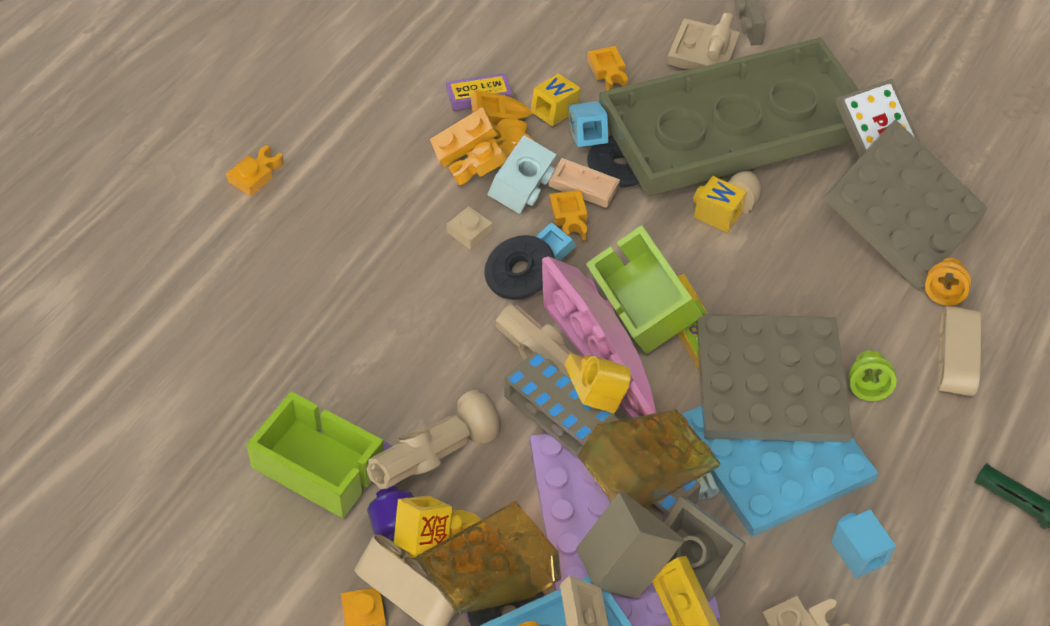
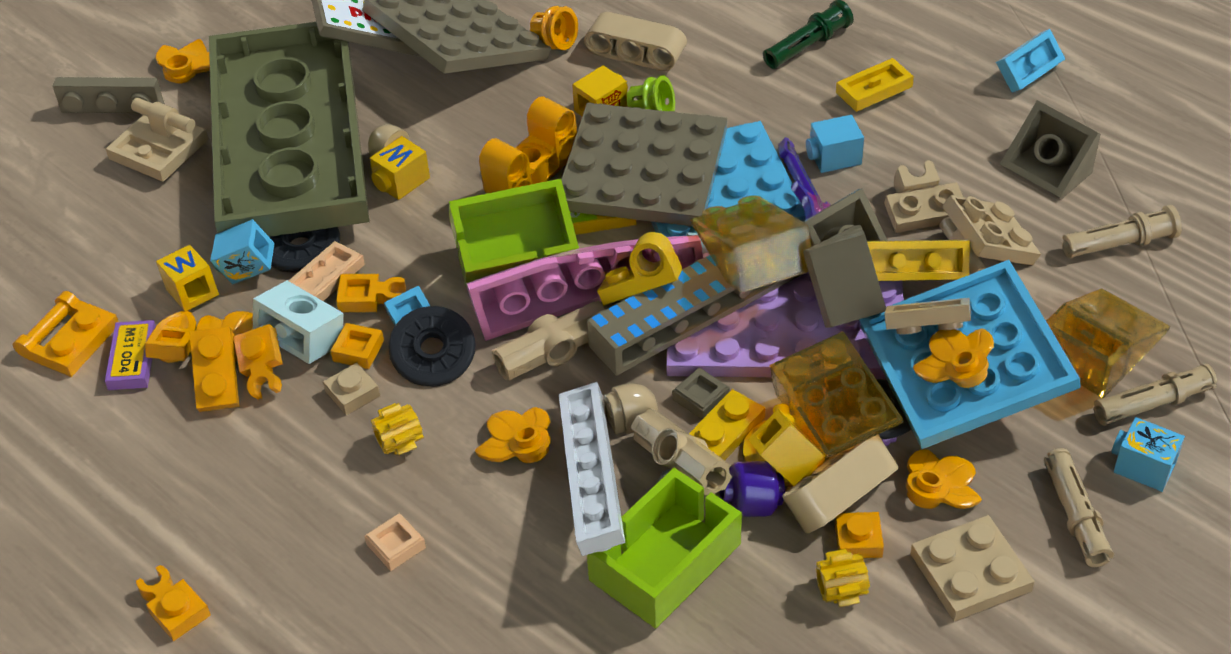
camera: 75 degrees left, 5 degrees down
(303, 594) = (842, 578): none -> yellow gear
(322, 285) = (395, 542): none -> light nougat tile
(381, 384) = (590, 470): none -> white plate
(422, 259) = (397, 429): none -> yellow gear
(436, 342) = (516, 436): none -> light orange plate
(468, 490) = (729, 423): none -> yellow plate
(489, 58) = (74, 341): none -> light orange plate
(508, 469) = (700, 392): none -> dark tan tile
(509, 219) = (357, 345): none -> light orange plate
(608, 65) = (148, 227): light orange plate -> none
(748, 293) = (538, 156): none -> light orange beam
(763, 528) = (802, 186): none -> dark purple piece
(810, 31) = (184, 63): none -> light orange plate
(866, 330) = (600, 87): none -> yellow brick
(974, 575) = (874, 84): none -> yellow plate

